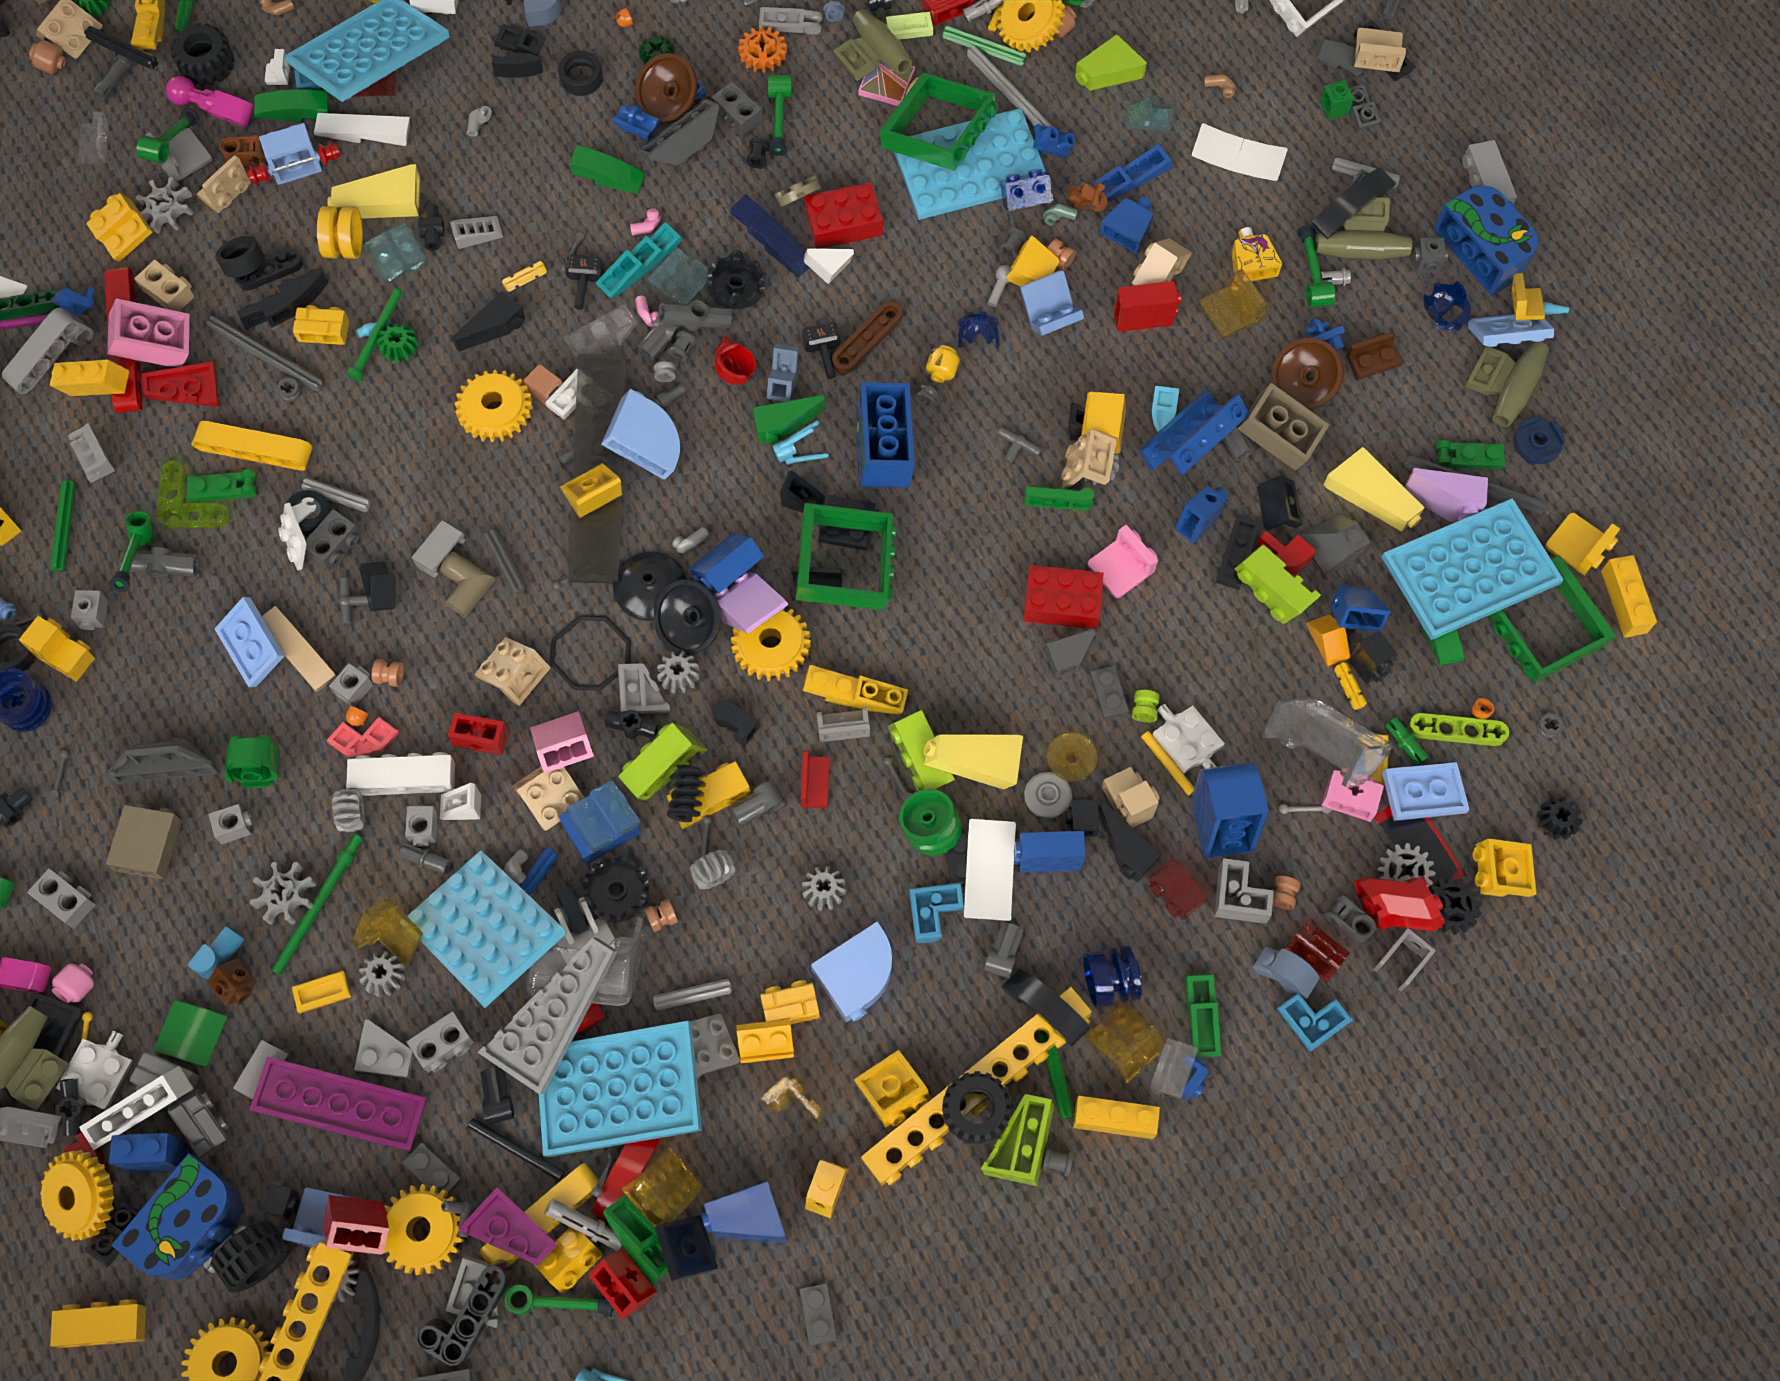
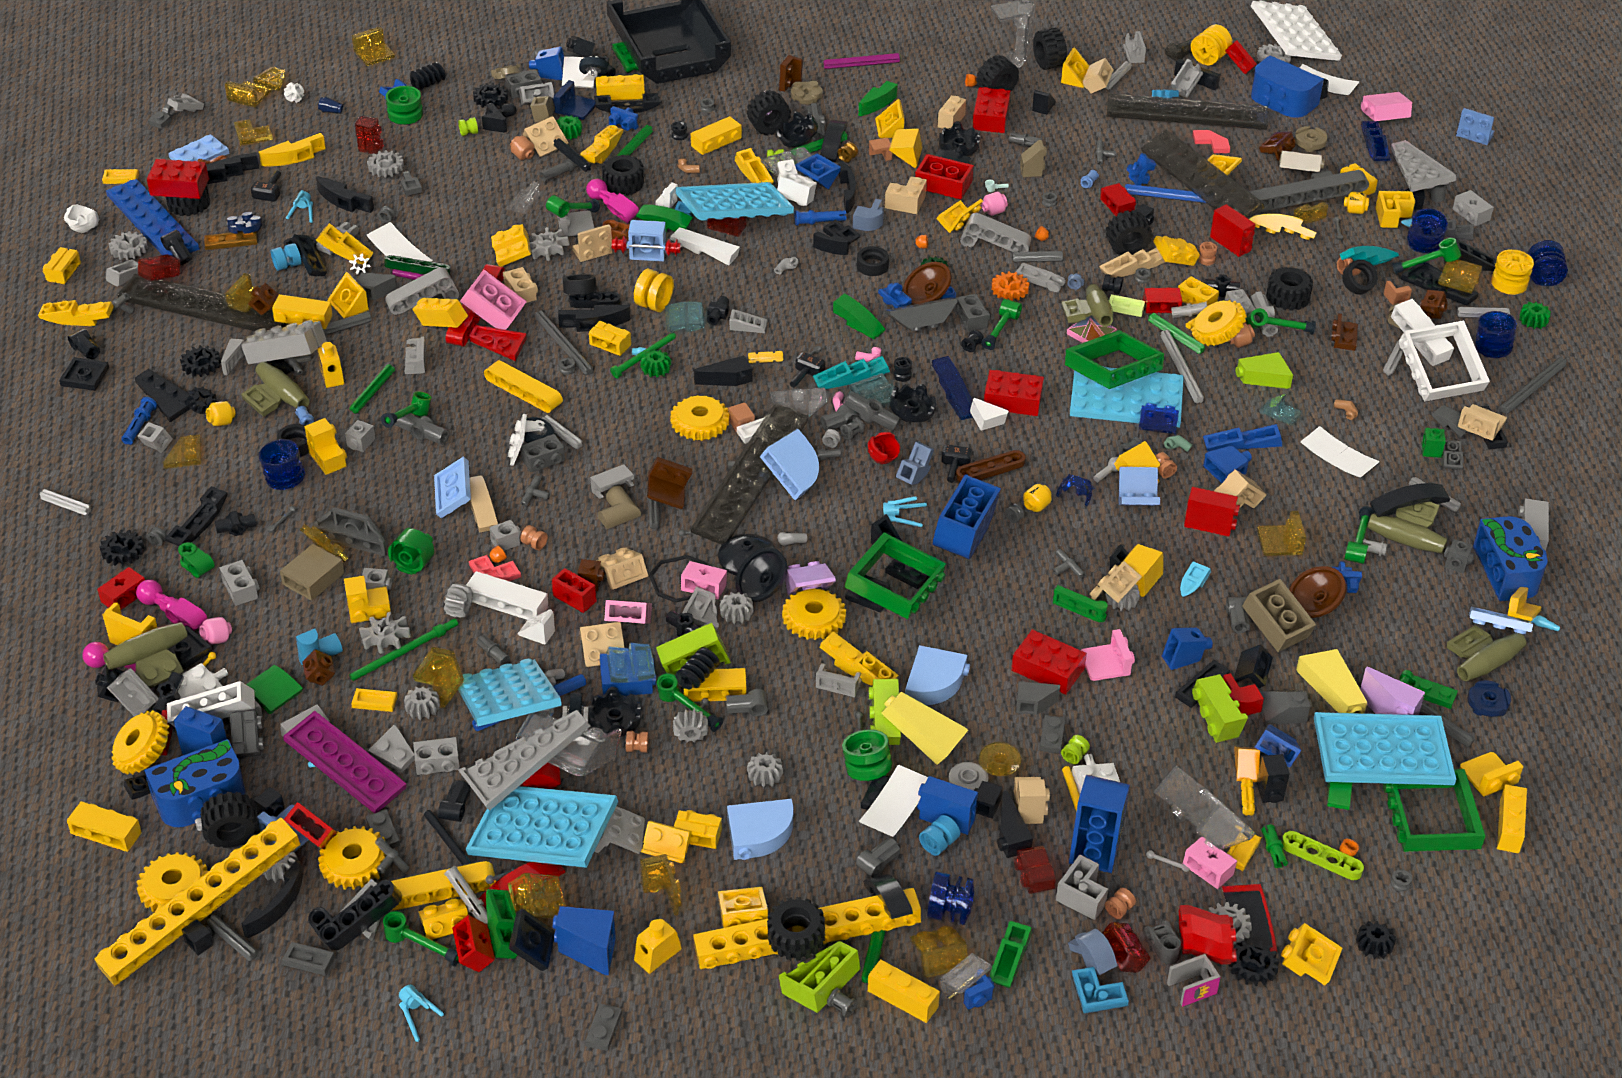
camera: 25 degrees right, 25 degrees down
(73, 301) = (457, 273): blue bracket -> none
(133, 794) = (322, 541): none -> clear yellow plate
(177, 507) = (449, 406): clear neon green beam -> none
(221, 486) = (489, 402): green plate -> none
(238, 861) = (364, 602): none -> yellow brick
(378, 586) = (558, 489): black slope -> none
(381, 195) = (697, 283): light yellow slope -> none
(417, 815) = (502, 629): light grey brick -> none
(472, 30) = (812, 217): none -> blue pin
(484, 699) = (591, 571): none -> reddish brown brick
(507, 526) = (668, 482): none -> reddish brown bracket
(509, 1229) = (413, 873): magenta wing -> none
(592, 489) = (738, 482): yellow slope -> none
(632, 650) = (703, 576): none -> bright pink brick
(692, 994) = (634, 798): light grey axle -> none
(697, 231) = (902, 369): none -> black wheel
(726, 562) = (810, 551): blue brick -> none
(731, 845) = (669, 691): none -> green piece
(737, 720) = (761, 649): black leg -> none
(781, 419) = (897, 488): green slope -> none
(798, 191) = (982, 367): dark tan plate -> none
(814, 781) = (796, 704): red panel -> none
(926, 906) = (836, 807): dark azure brick -> none
(947, 671) = (936, 675): none -> light blue brick
(1053, 141) = (1194, 397): blue hips -> none
(1058, 888) = (939, 835): none -> dark azure wheel
(1088, 197) = (1202, 435): dark orange hips -> none
(1193, 432) = (1205, 594): blue fence -> none
(1255, 256) = (1316, 514): yellow torso -> none
(1373, 356) = (1379, 602): reddish brown bracket -> none
(1425, 791) = (1271, 881): light blue plate -> none
(1442, 300) = (1456, 587): clear blue helmet -> none

